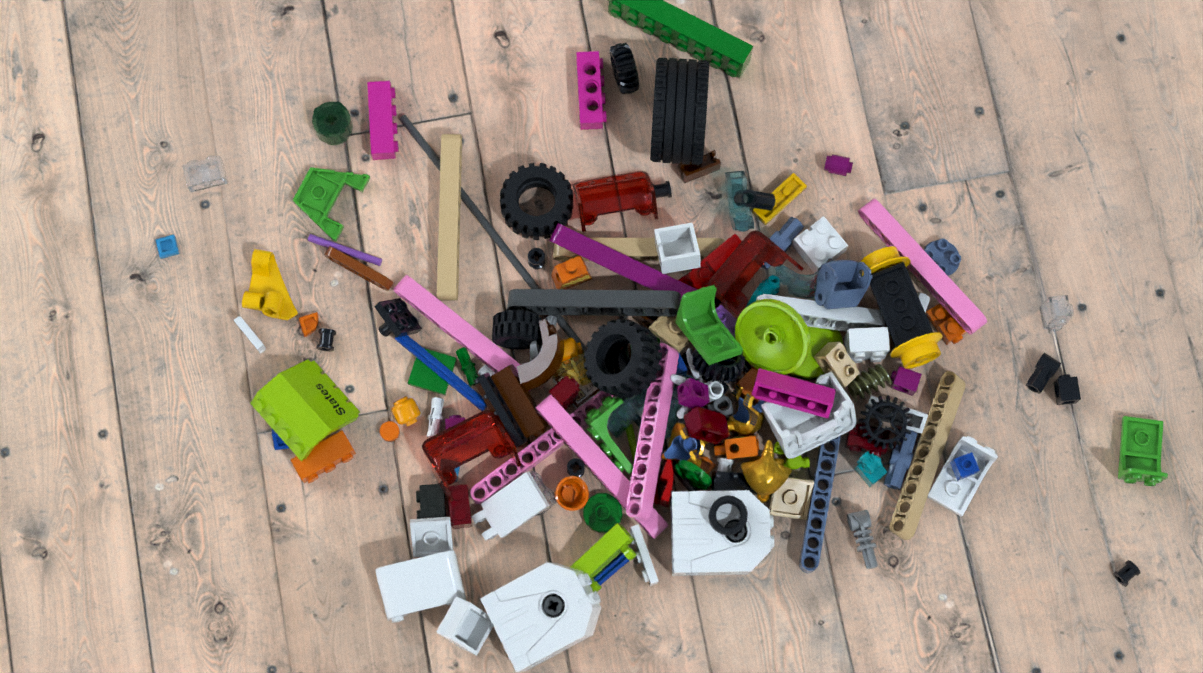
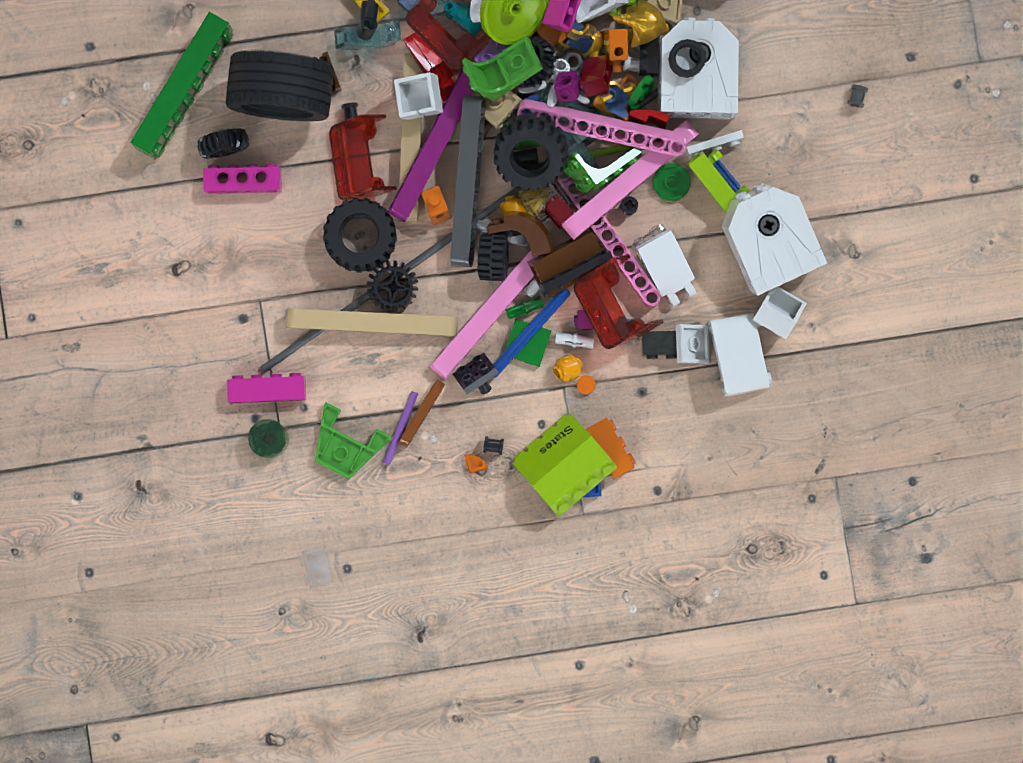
camera: 85 degrees left, 10 degrees up
(167, 246) = (391, 605): dark azure tile -> none
(250, 334) = (486, 520): white tile -> none
(267, 288) = (439, 504): yellow panel -> none
(460, 508) = (671, 315): dark red brick -> none
(486, 227) = (393, 276): none -> black gear
(531, 261) = (412, 235): black bush -> none
(571, 493) = (655, 209): orange helmet -> none

